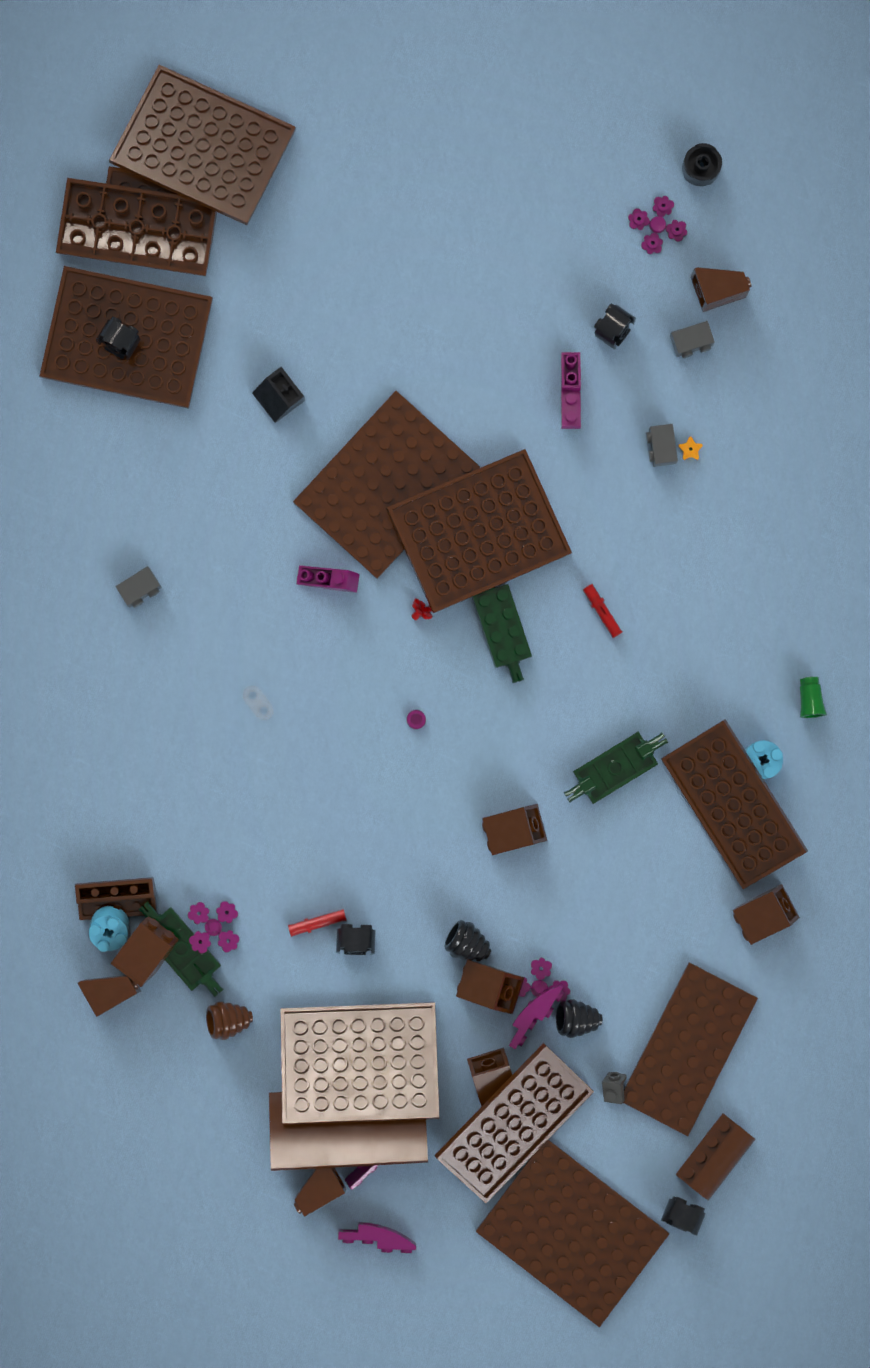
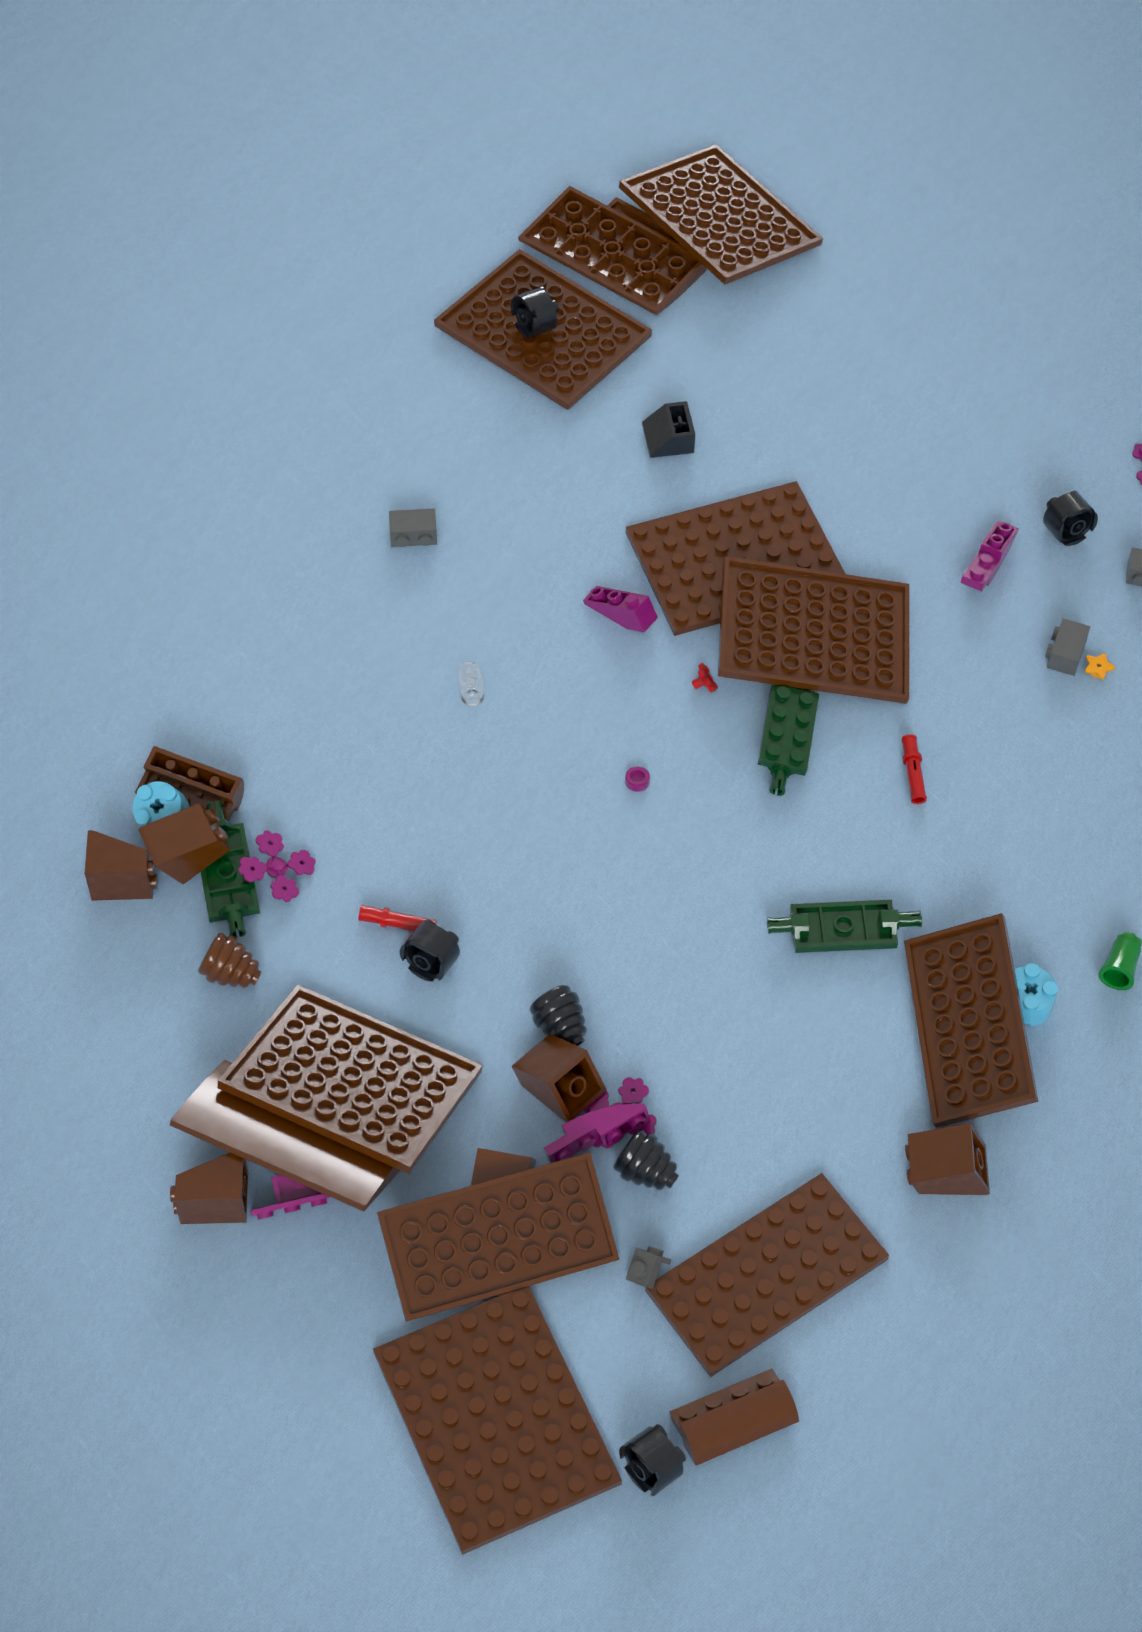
camera: 30 degrees right, 30 degrees down
(386, 1238) = (254, 1293): magenta slope -> none
(514, 829) = (687, 929): reddish brown slope -> none

